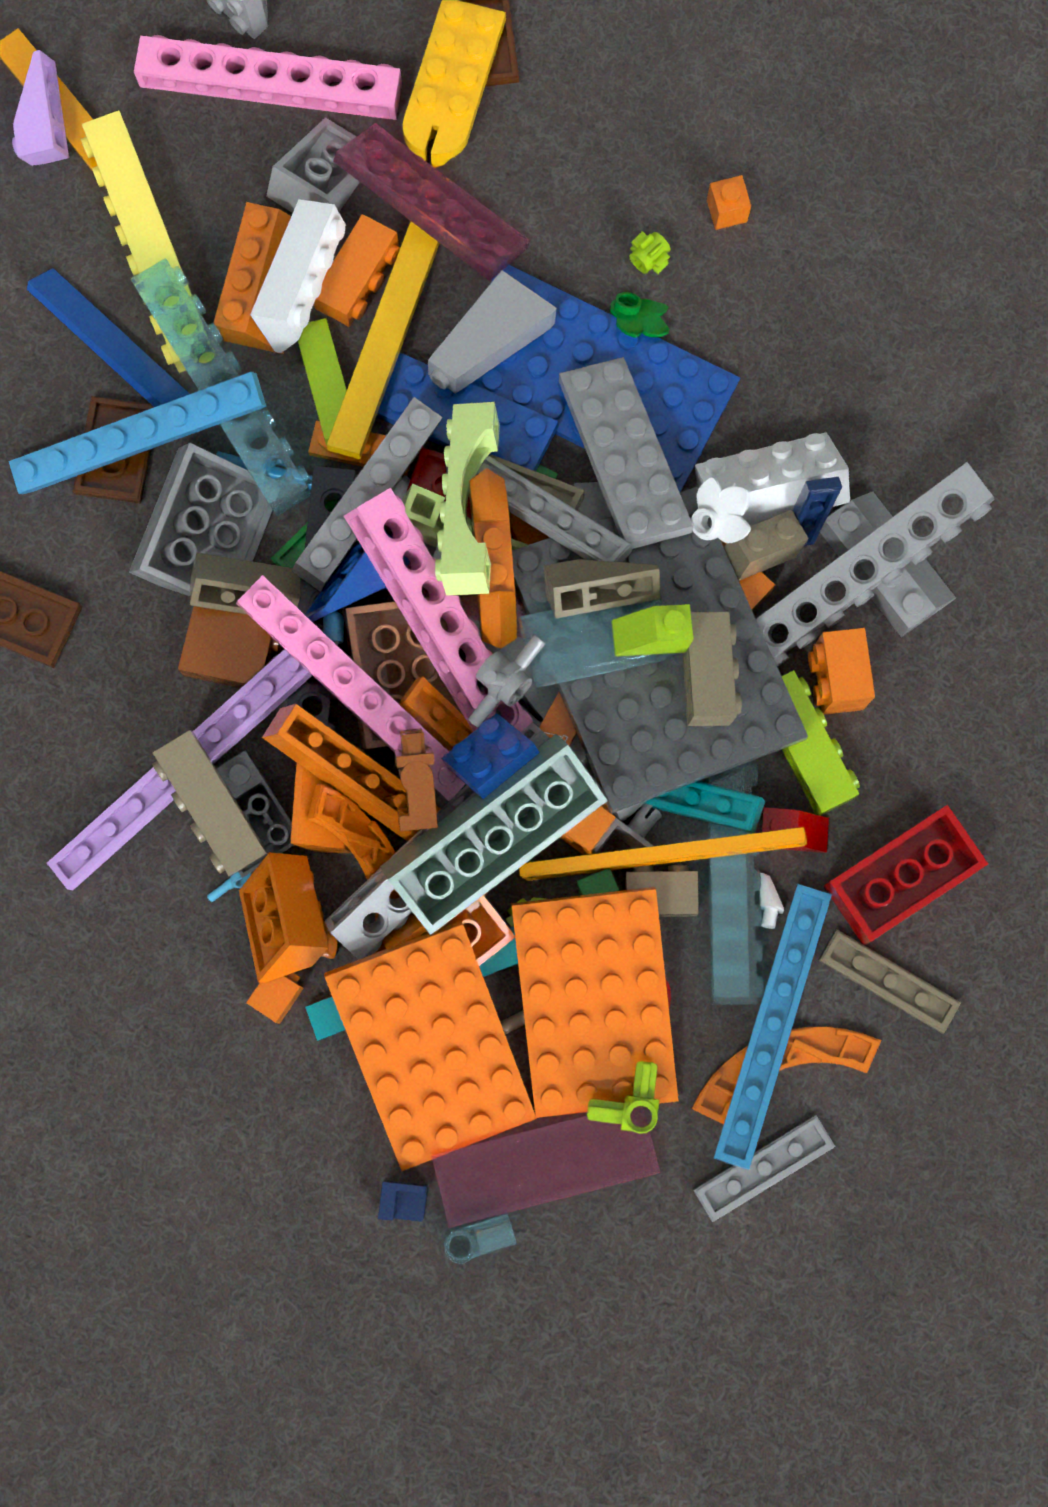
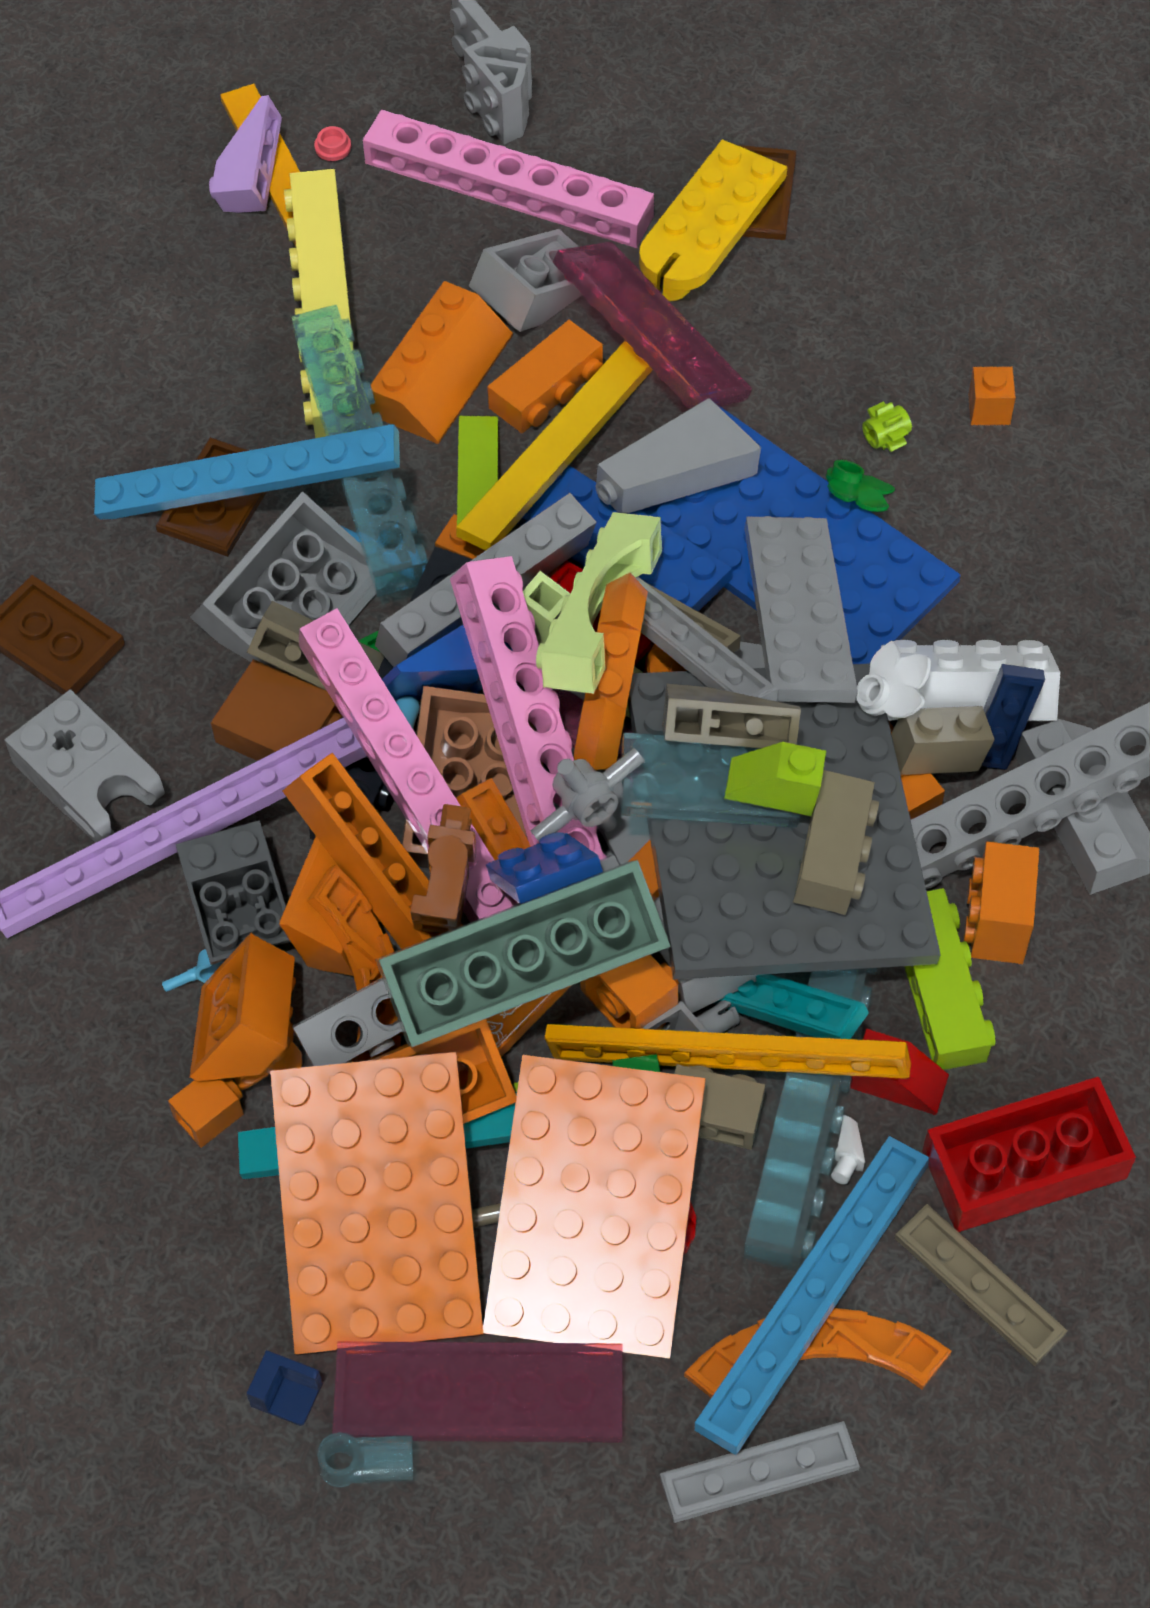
camera: 15 degrees right, 20 degrees down
(92, 736) = (81, 763): none -> light grey brick
(105, 338) = (239, 377): blue tile -> none
(106, 76) = (332, 144): none -> coral plate
(209, 803) = (199, 860): dark tan brick -> none
(297, 272) = (476, 354): white slope -> none
(620, 1112) = (621, 1330): lime axle -> none

